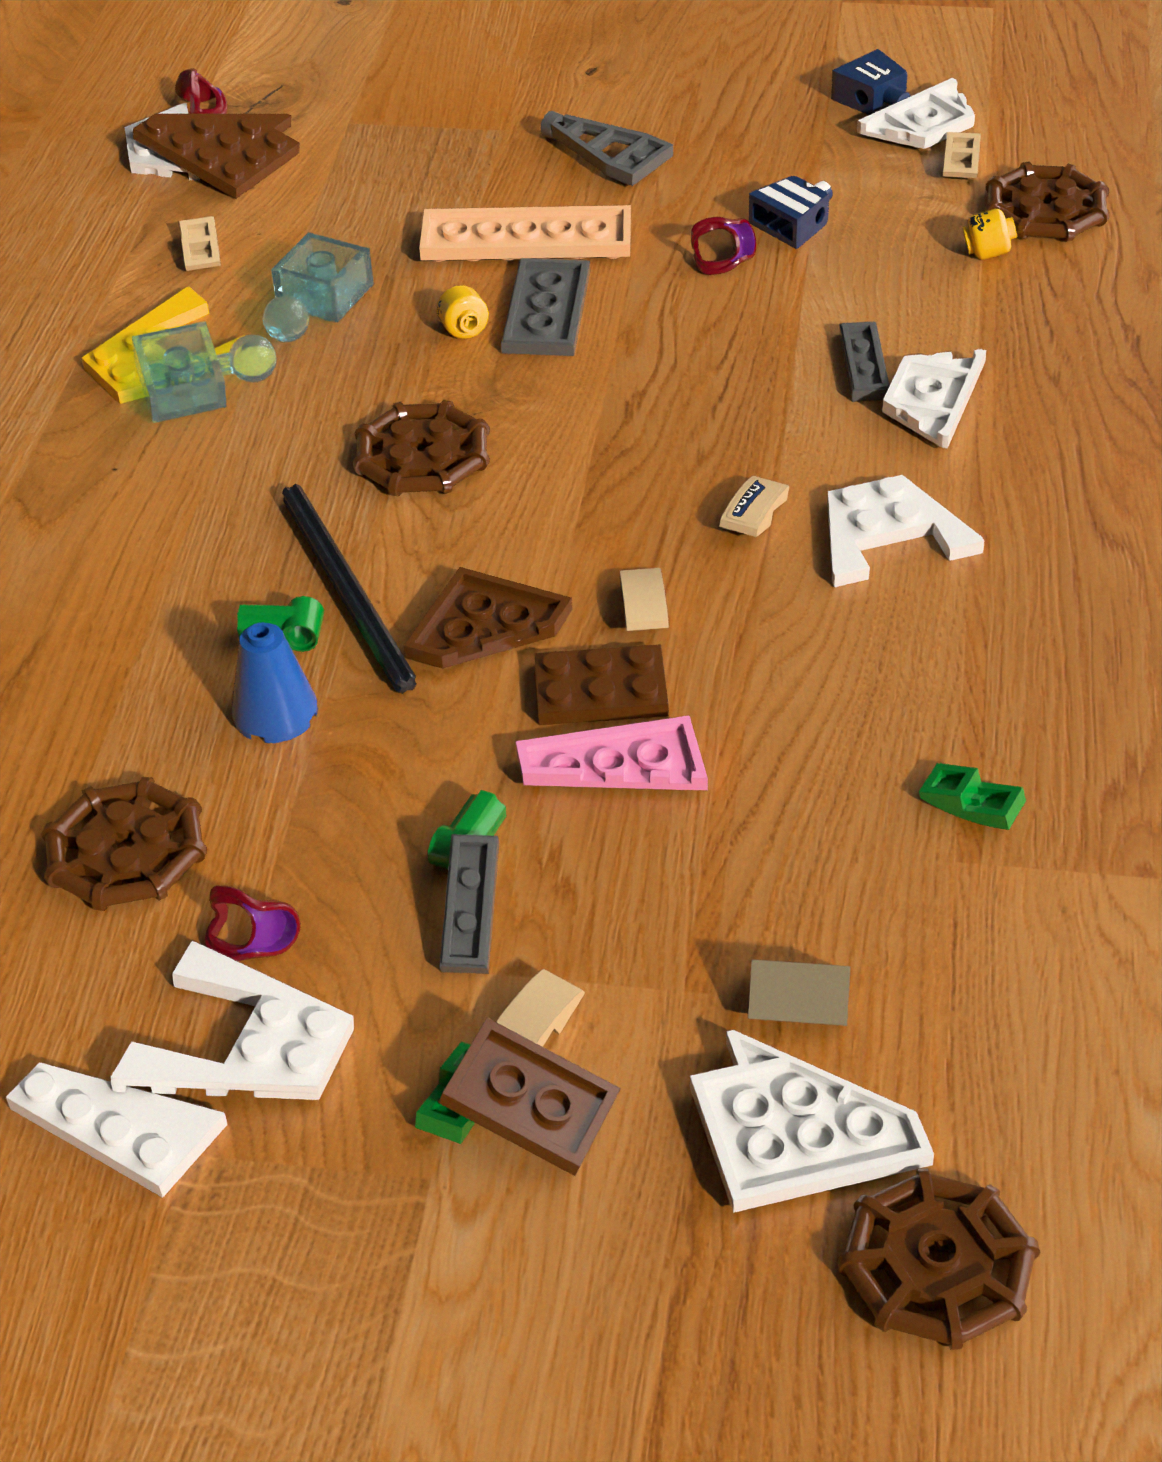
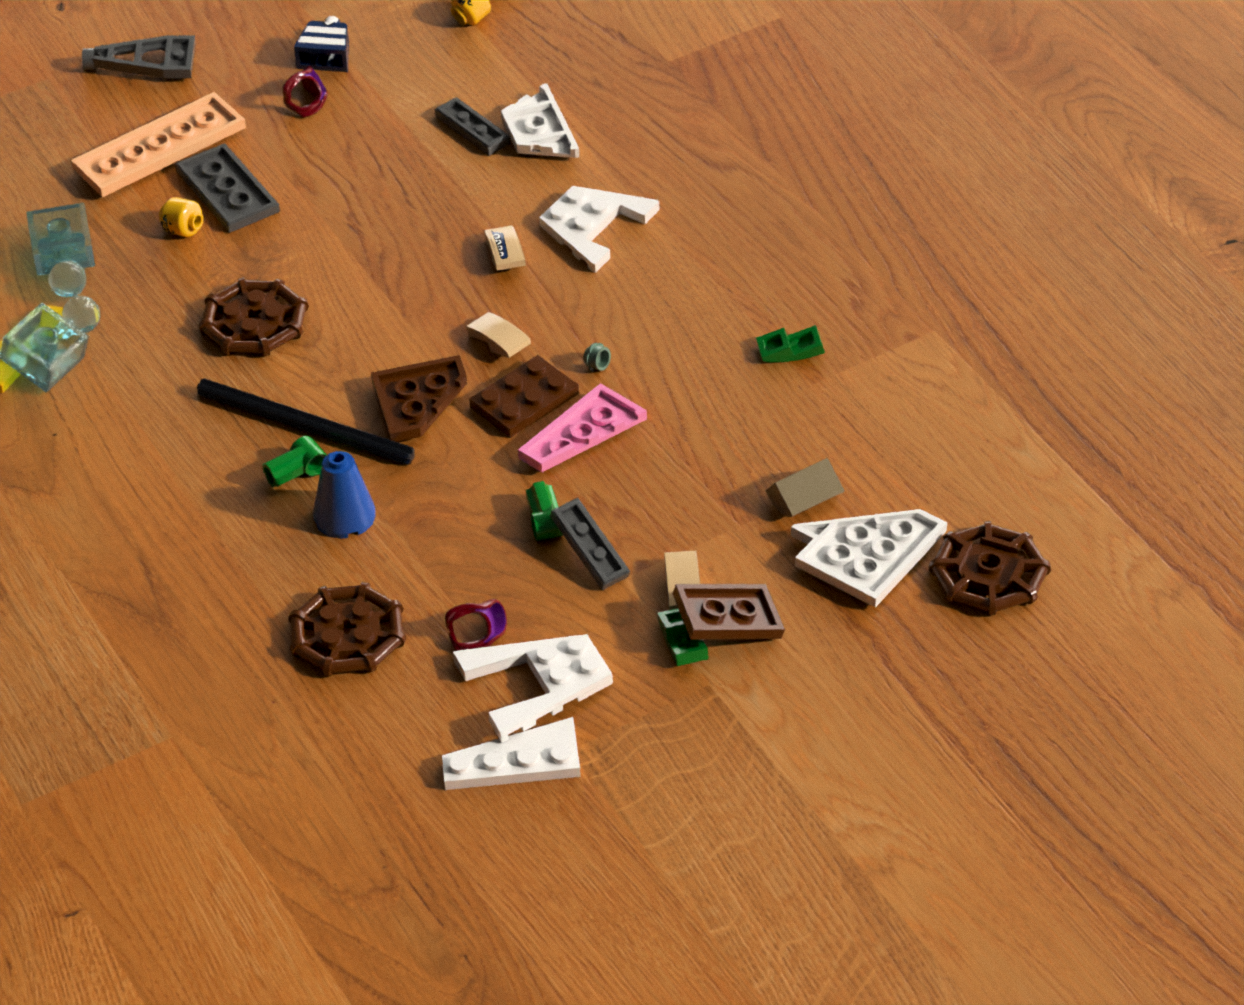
camera: 40 degrees left, 0 degrees up
(730, 689) = (597, 357): none -> sand green plate

